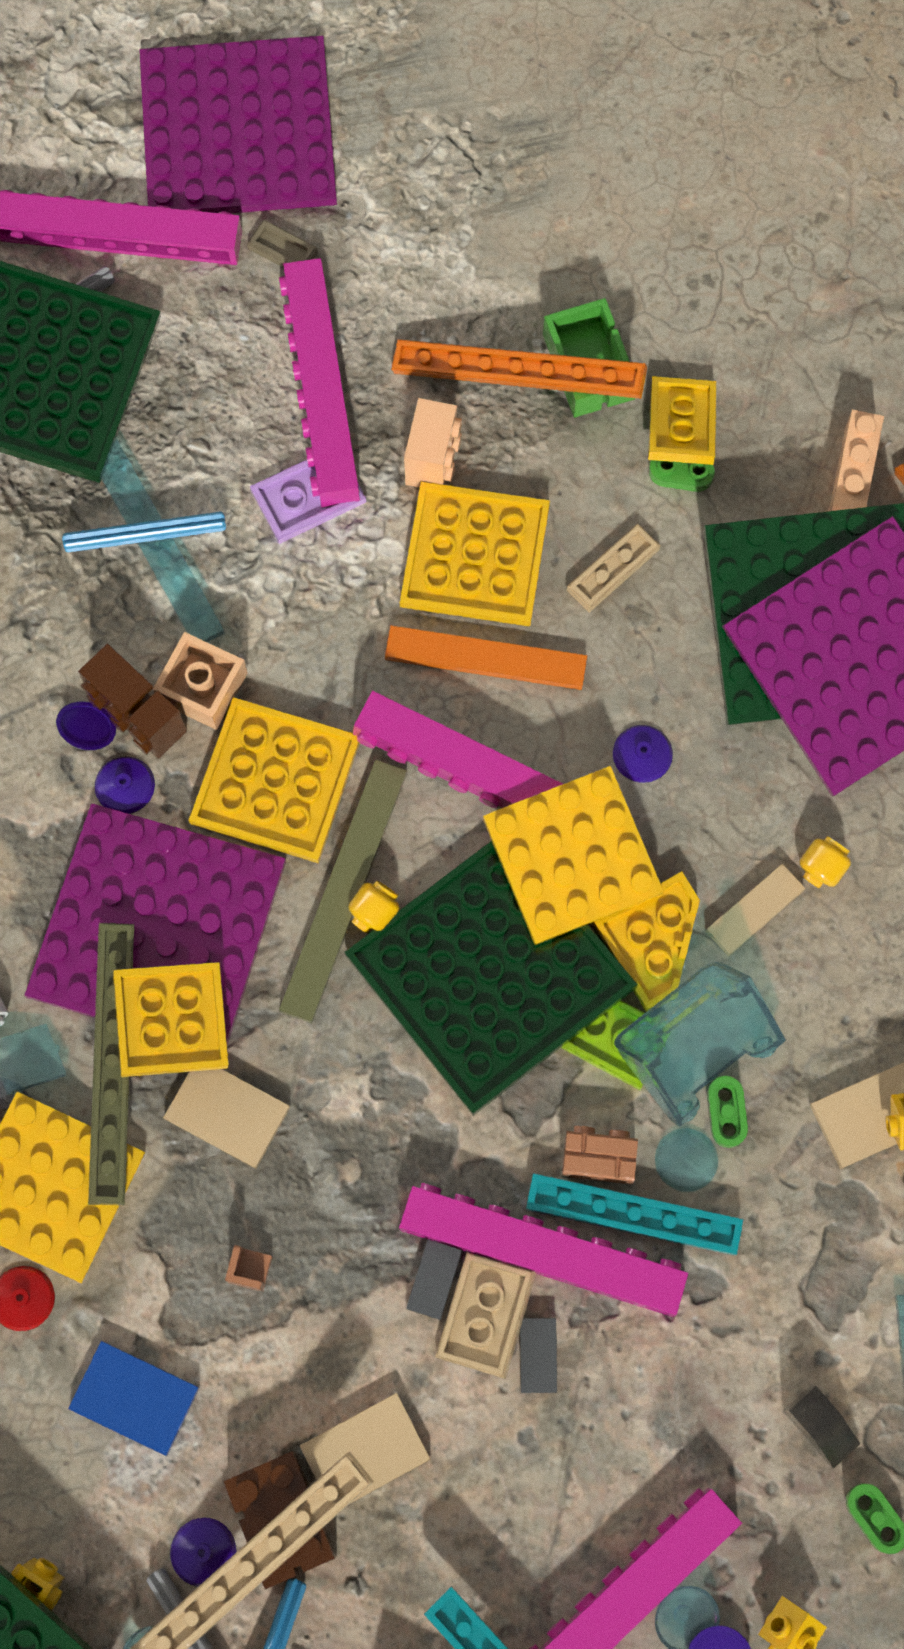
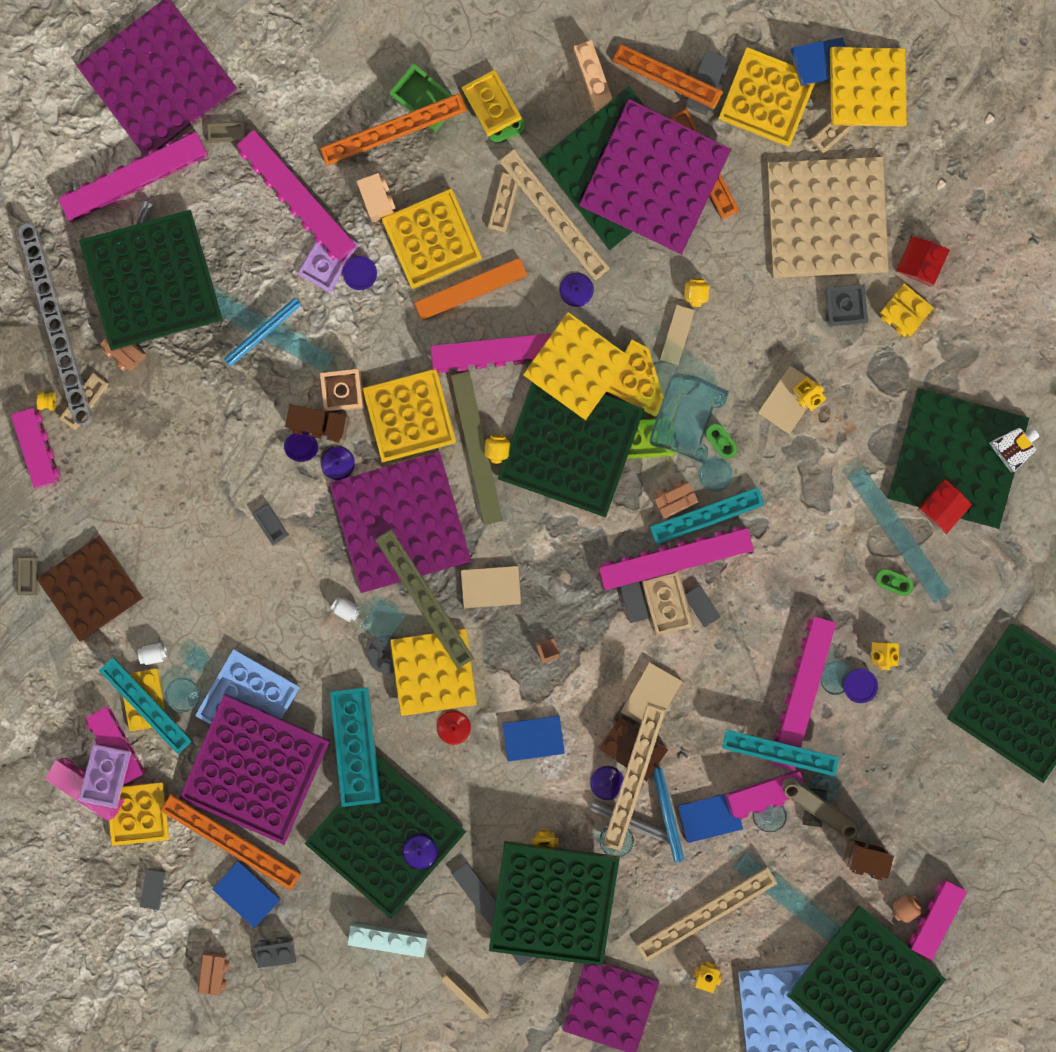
camera: 30 degrees left, 15 degrees up
(170, 1019) = (439, 562): yellow plate -> none
(339, 537) = (359, 273): none -> dark purple piece
(677, 628) = (554, 214): none -> tan tile
(822, 1425) = (847, 557): clear smoke slope -> none

